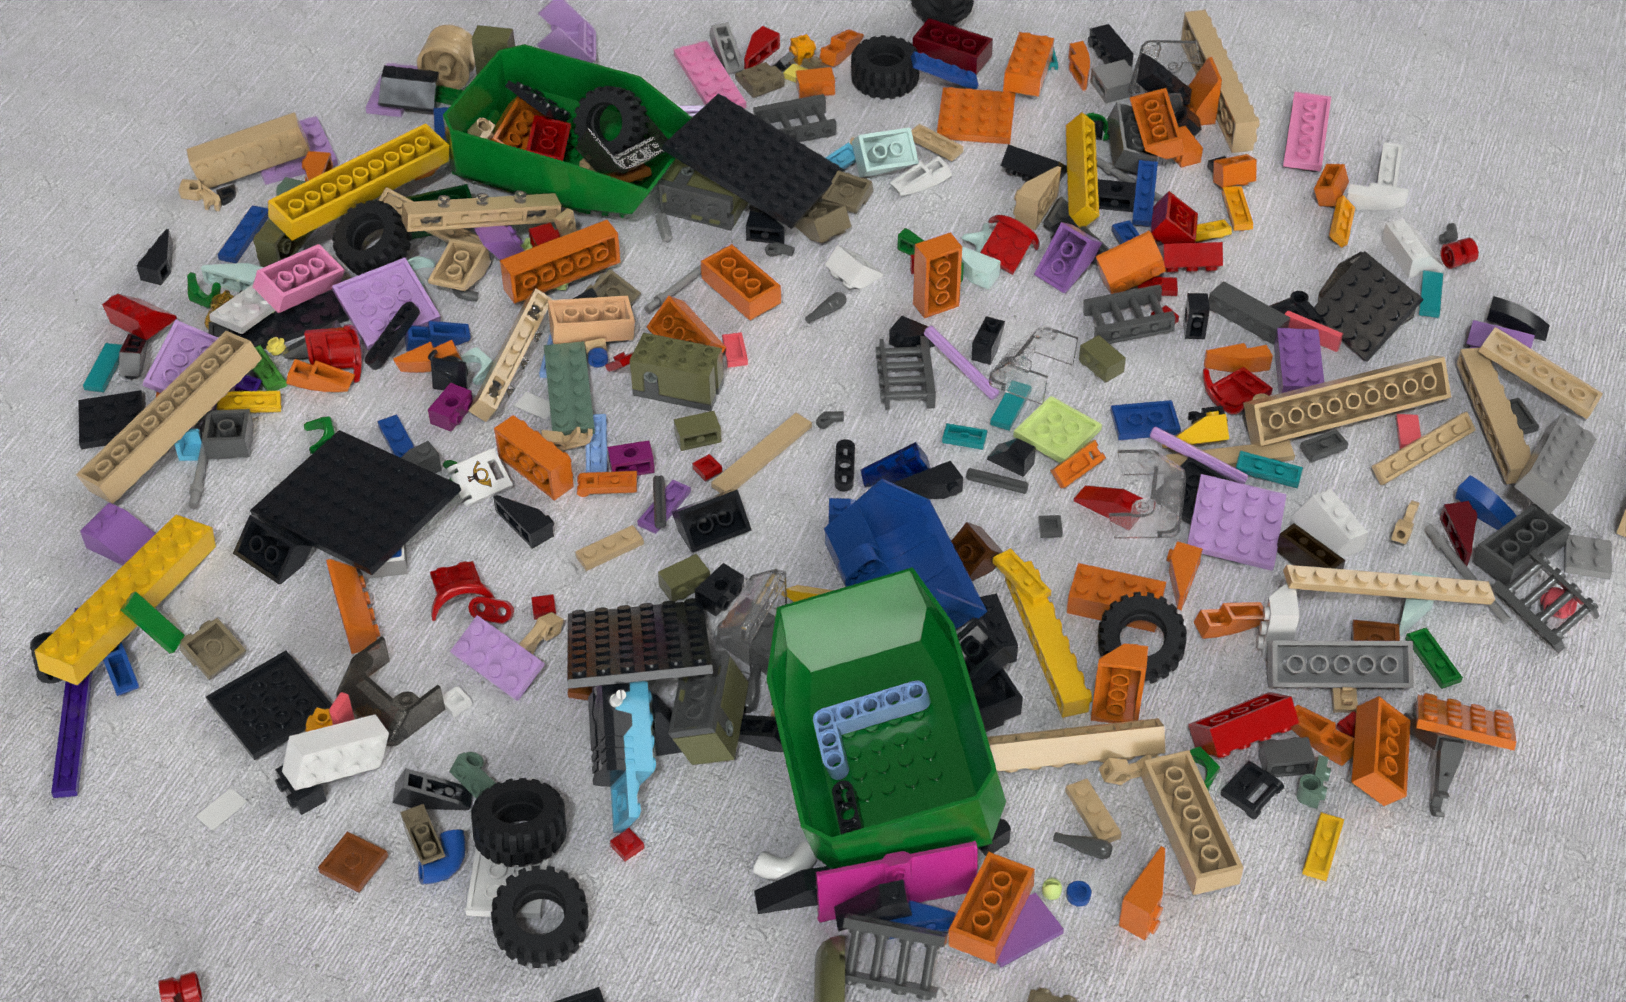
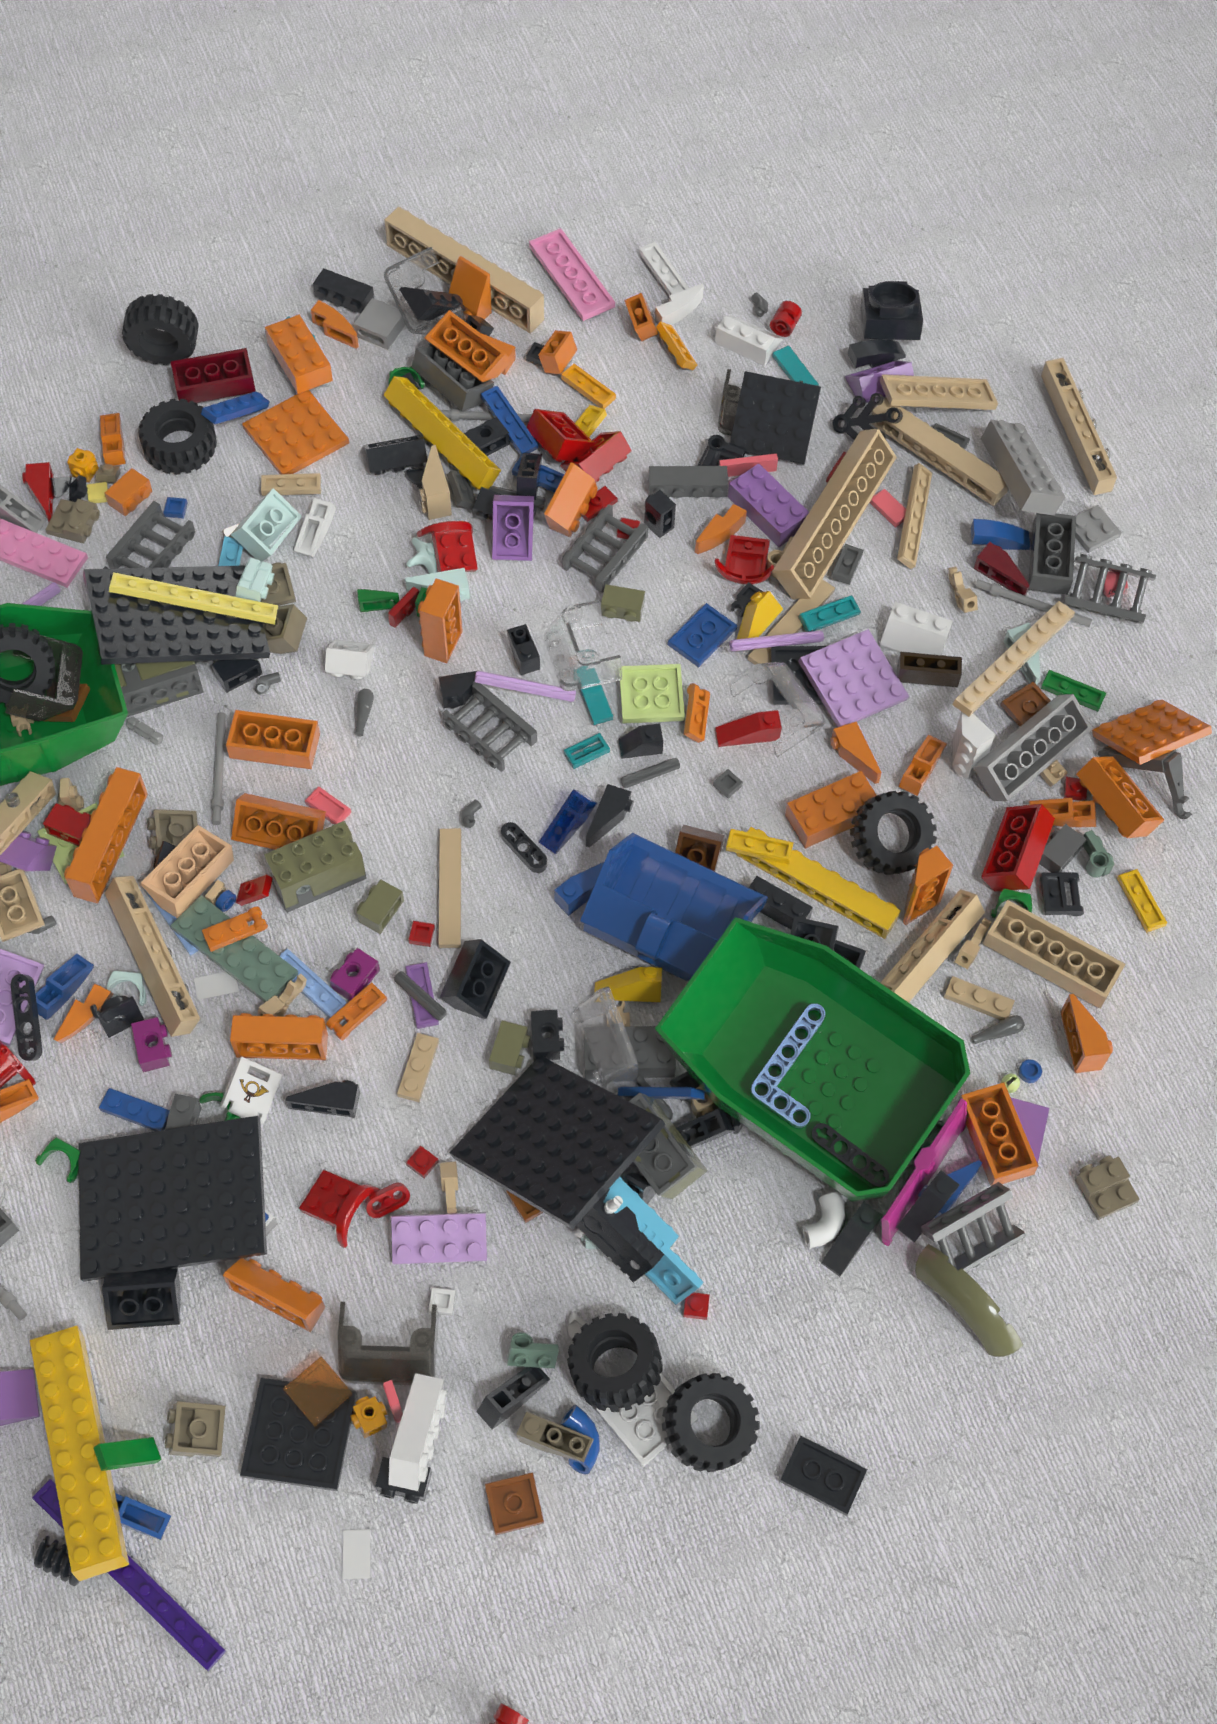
camera: 45 degrees left, 15 degrees up
(309, 685) = (317, 1391): none -> clear orange tile
(579, 372) = (234, 929): none -> orange plate
(754, 676) = (662, 1092): none -> blue tile
(774, 53) = (60, 485): none -> tile
(776, 157) = (193, 598): none -> light yellow tile
(832, 174) = (255, 580): none -> light aqua brick
(838, 111) = (175, 507): none -> blue tile
(1116, 231) = (529, 475): none -> black slope
(1472, 358) = (864, 418): none -> black plant
(1560, 295) = (891, 311): none -> black container

